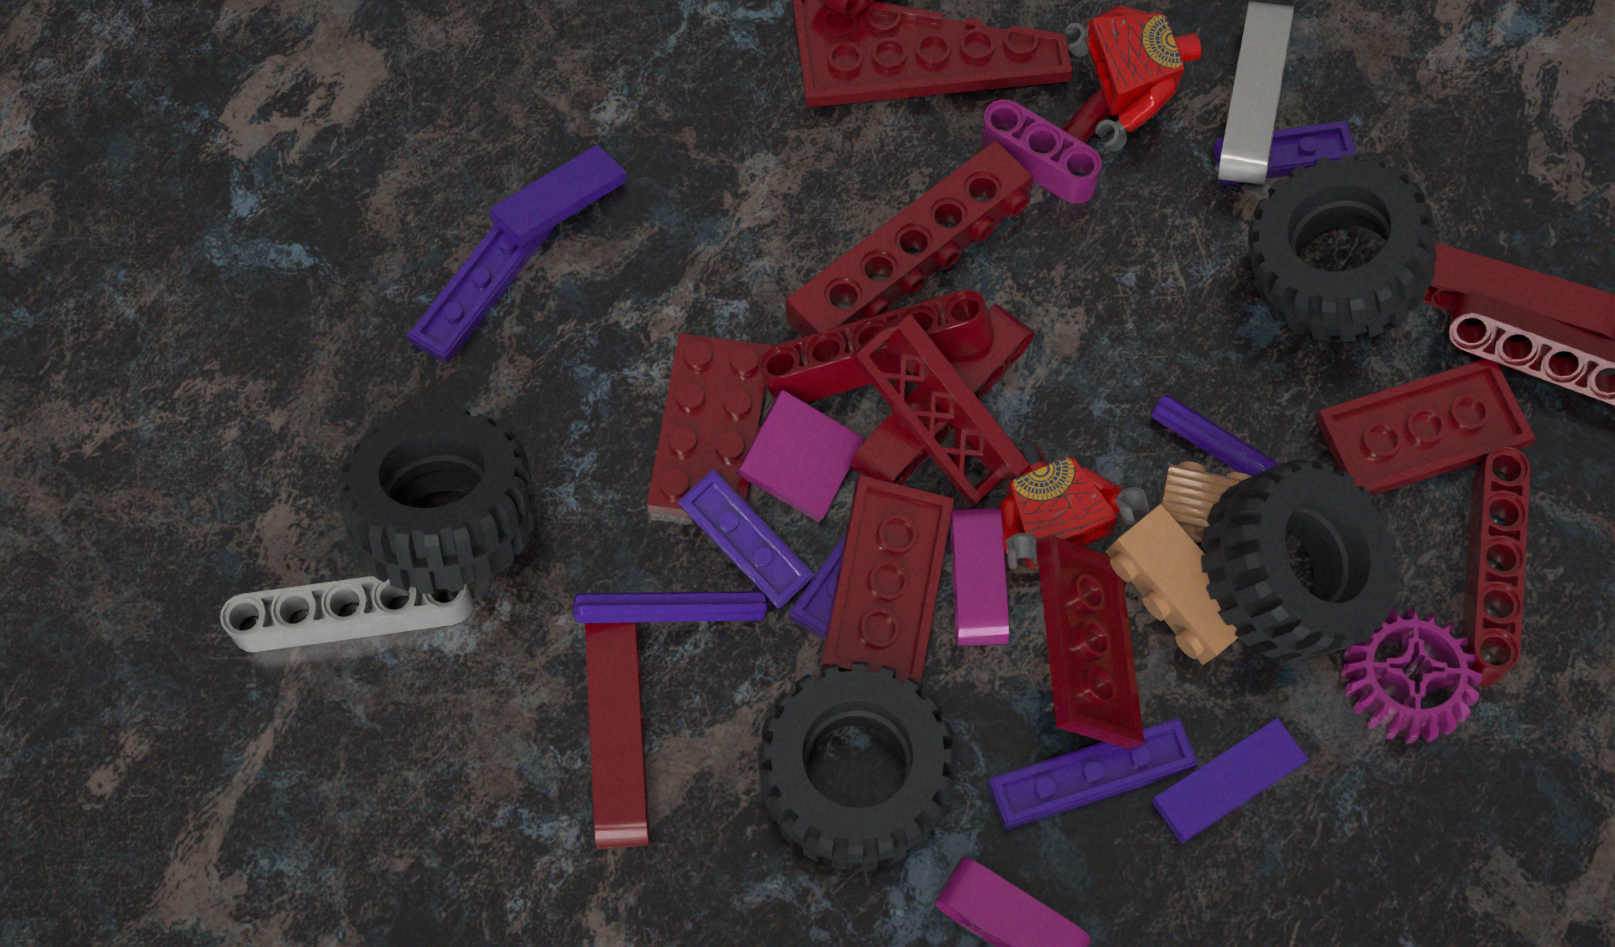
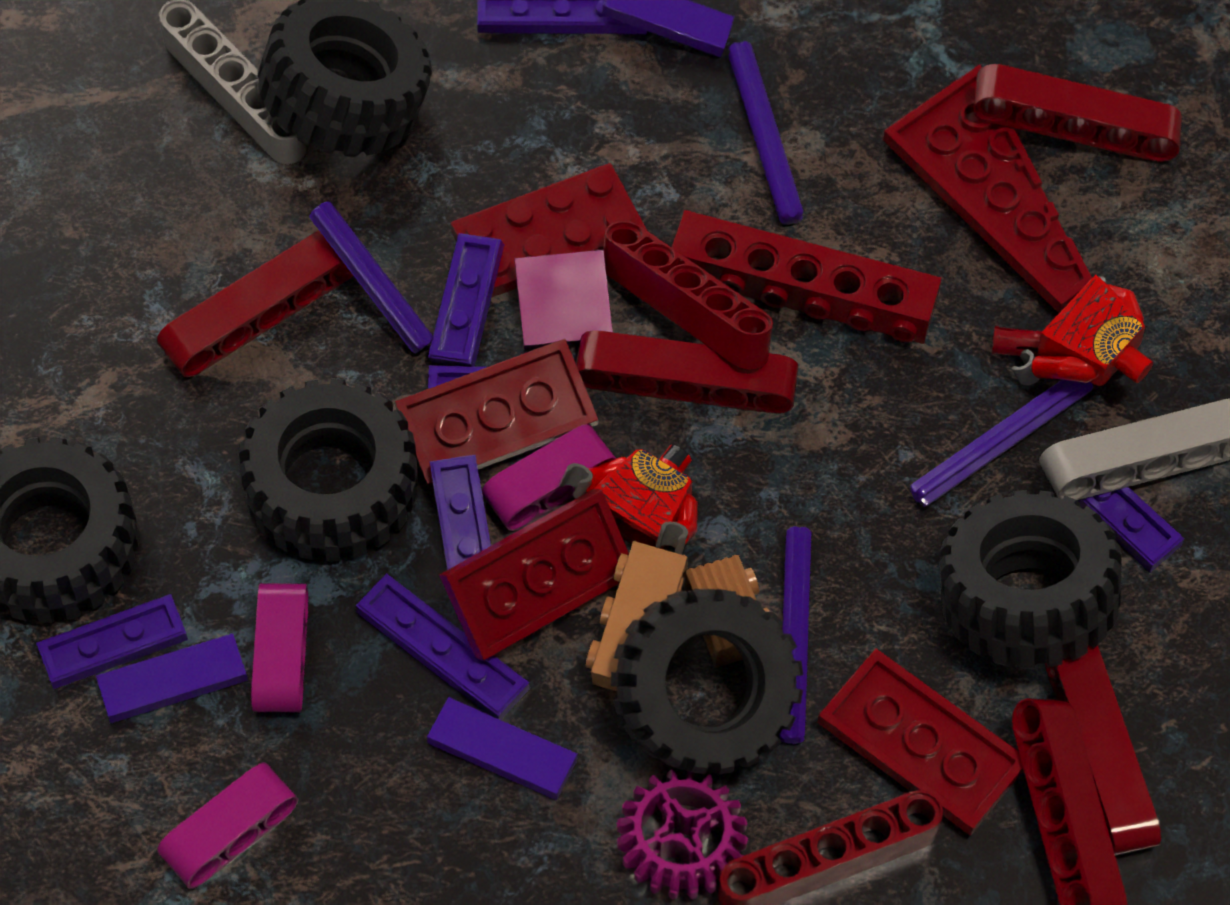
camera: 55 degrees right, 5 degrees down
(734, 192) = (766, 133): none -> dark purple axle
(953, 398) = (672, 363): dark red fence -> none
(983, 680) = (460, 508): none -> dark purple tile
(1049, 169) = (961, 339): magenta beam -> none
(1167, 206) = (997, 440): none -> dark purple axle

